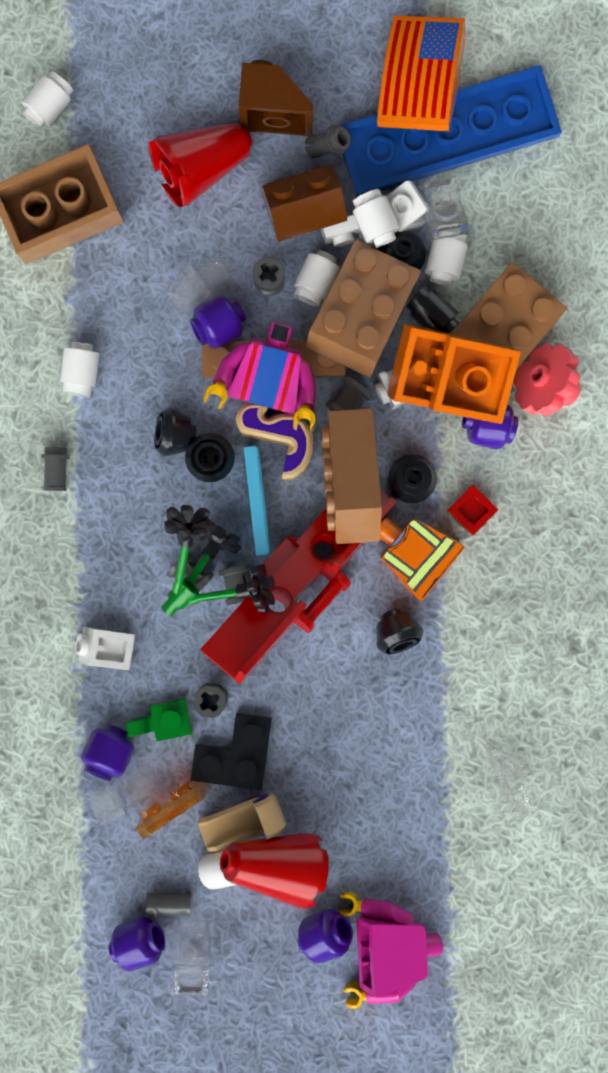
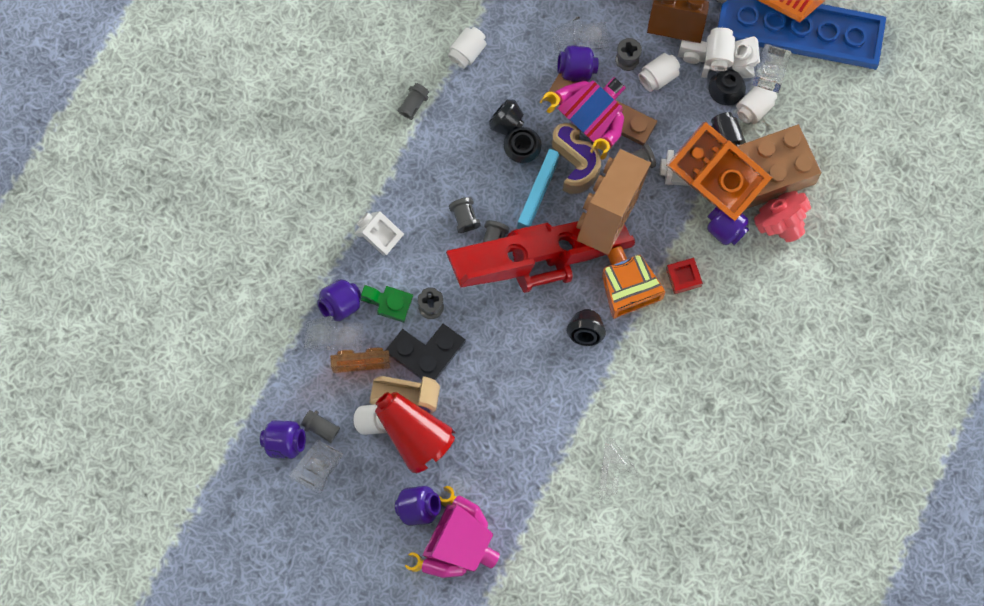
camera: 25 degrees right, 15 degrees down
(198, 527) = (456, 215): black plant -> none
(362, 308) = (679, 103): medium nougat brick -> none
(402, 472) = (653, 235): black cone -> none

